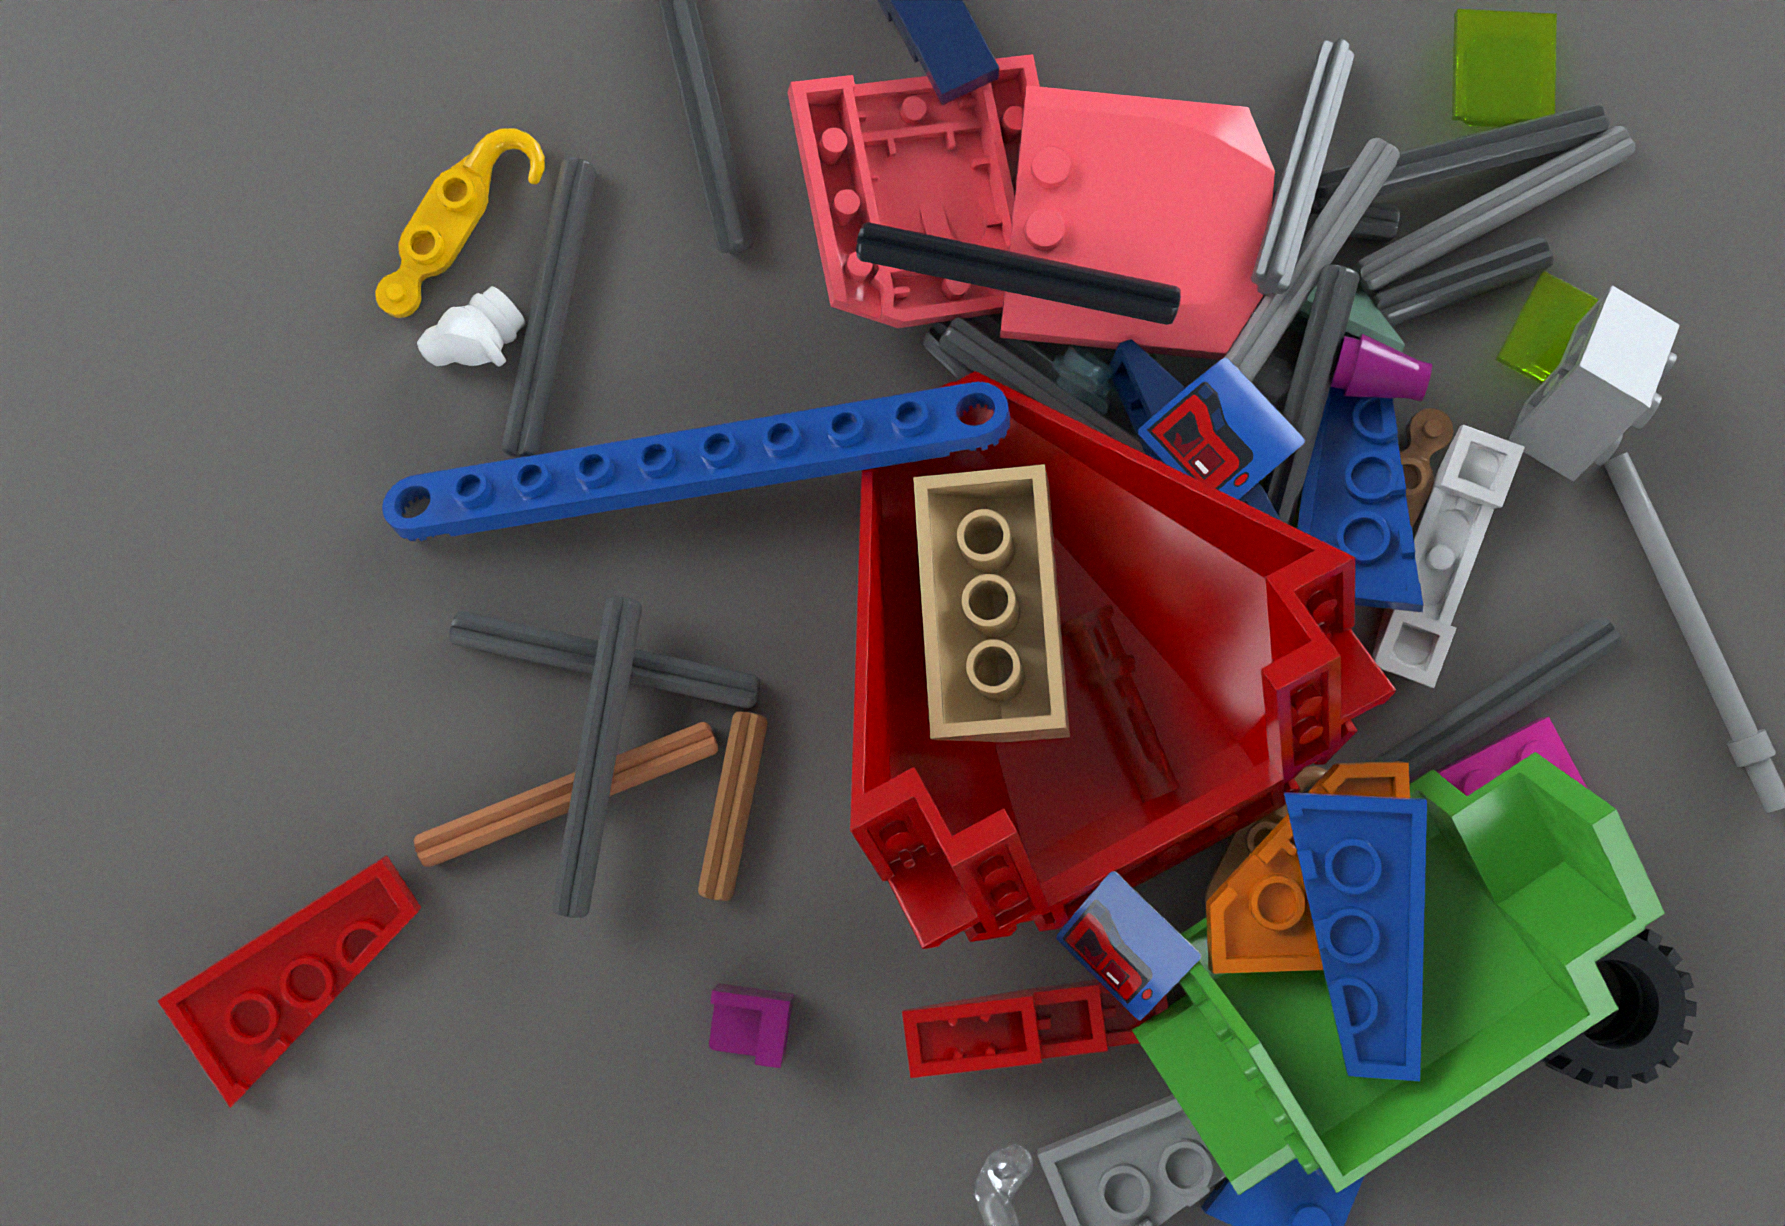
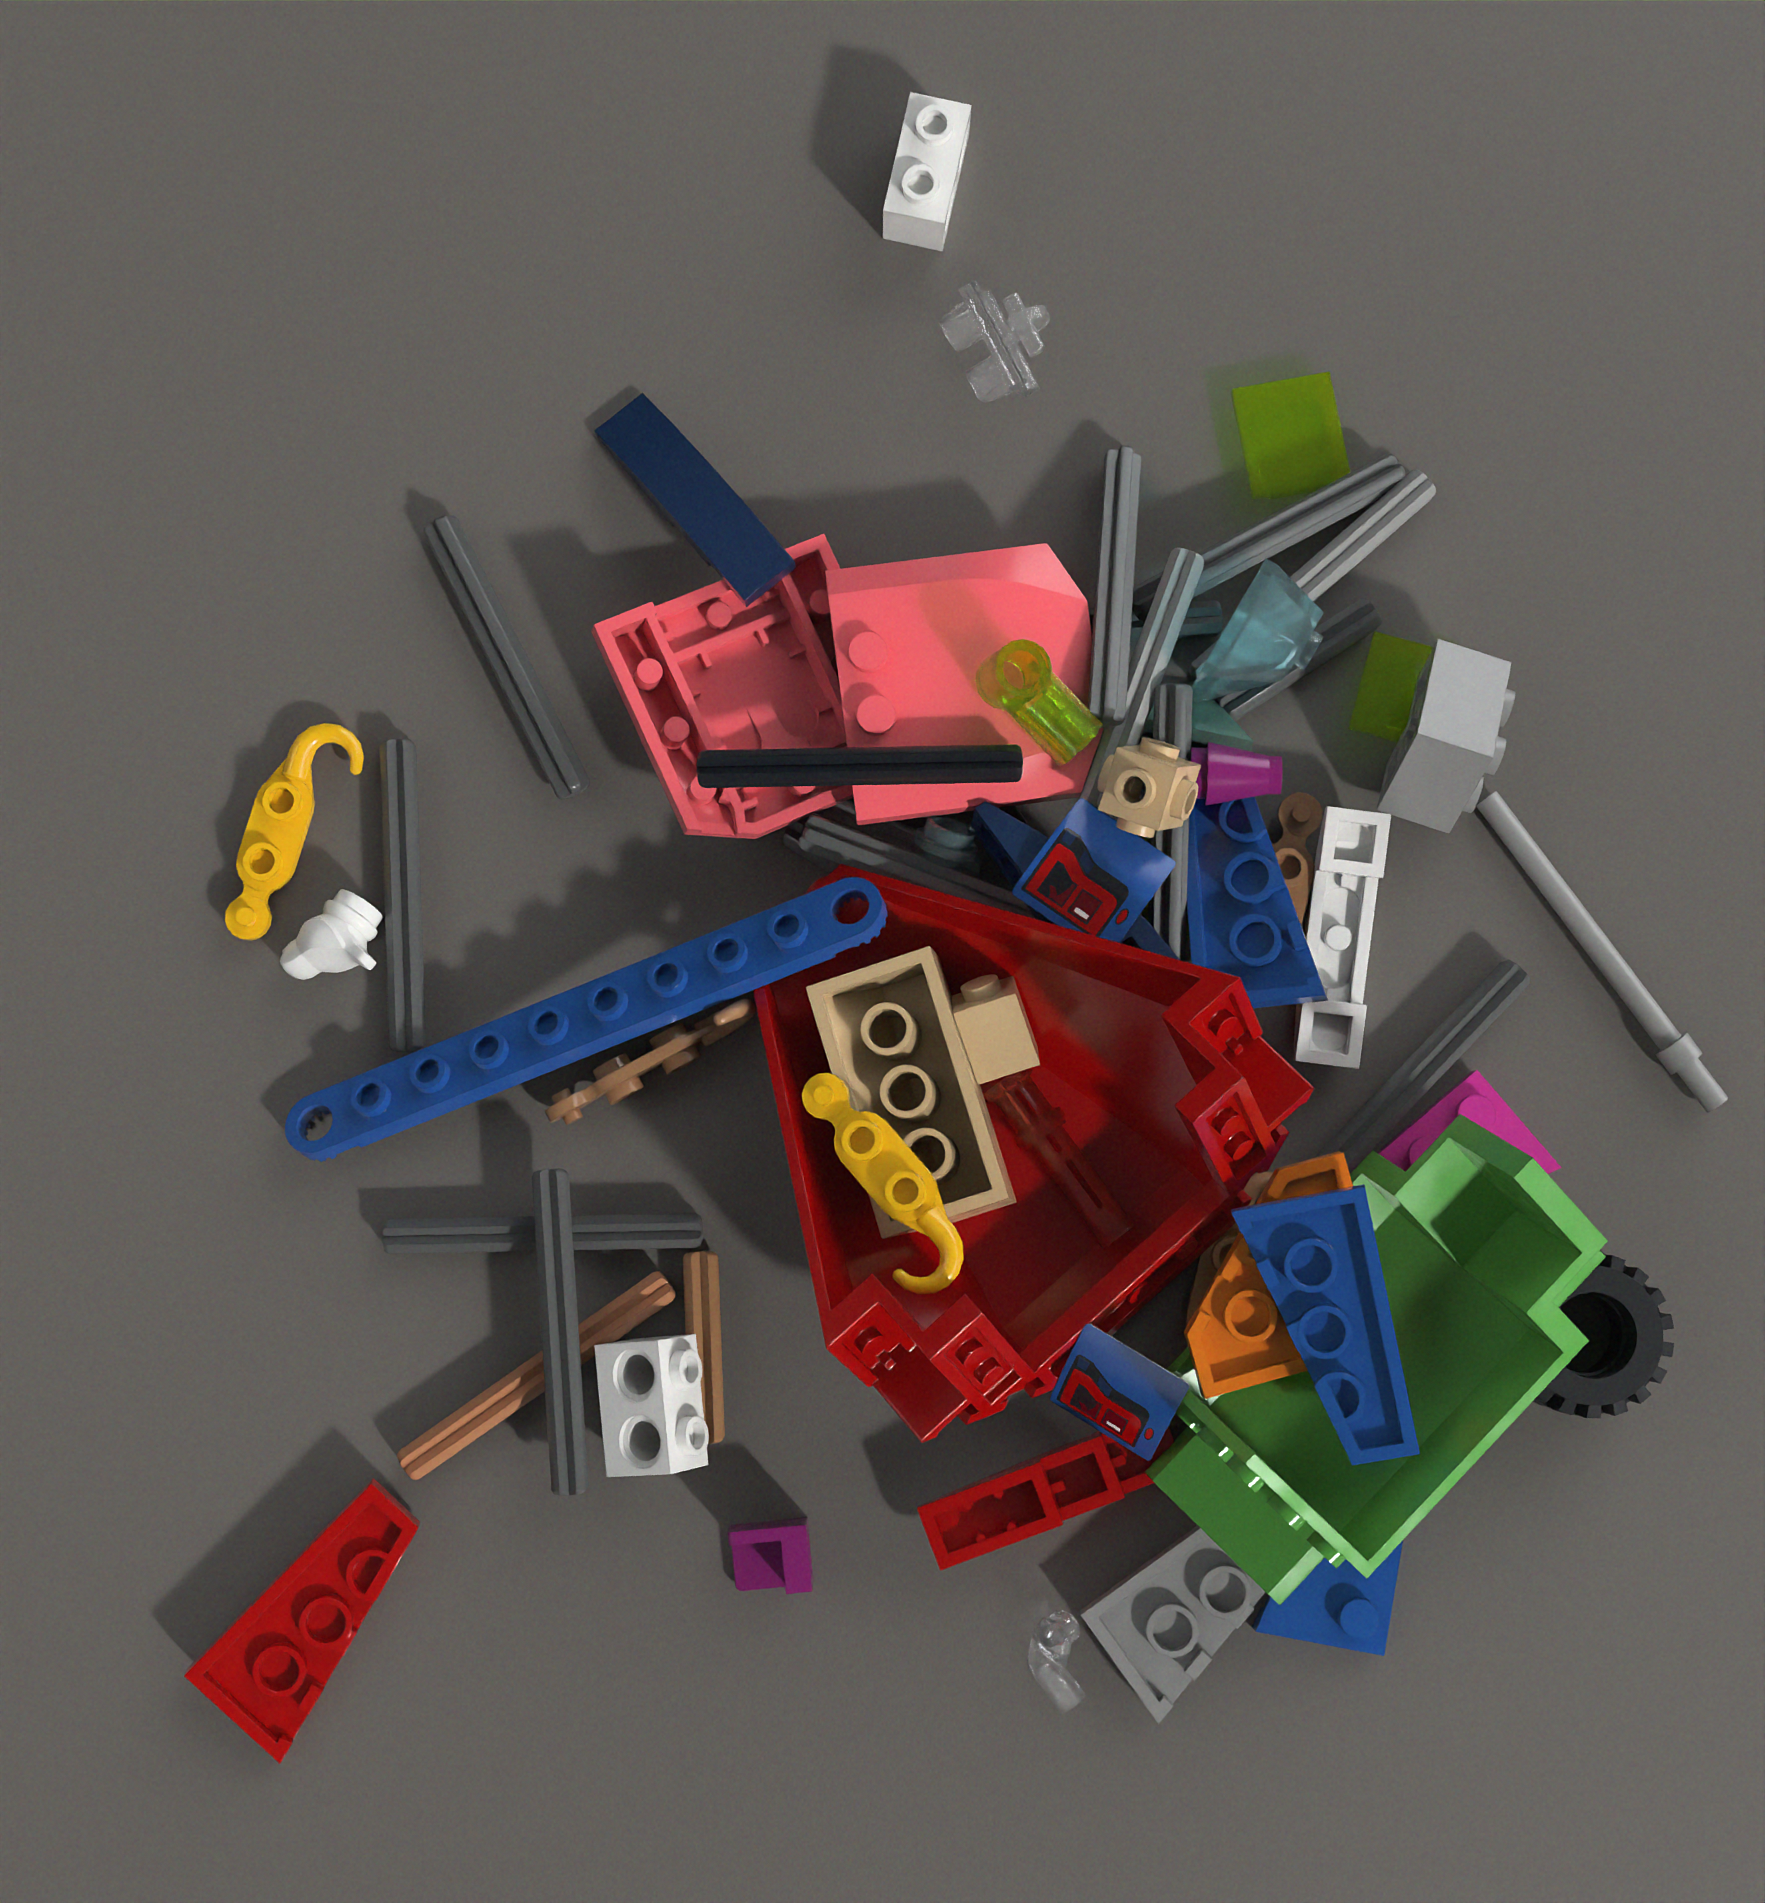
camera: 20 degrees left, 0 degrees up
(668, 850) = (646, 1405): none -> white brick
(770, 514) = (672, 1050): none -> medium nougat piece
(953, 678) = (889, 1175): none -> yellow piece
(1087, 562) = (994, 1028): none -> tan brick
(1212, 252) = (1044, 703): none -> clear neon green piece
(1316, 370) = (1168, 783): none -> tan brick
(1440, 243) = (1262, 637): none -> clear light blue slope

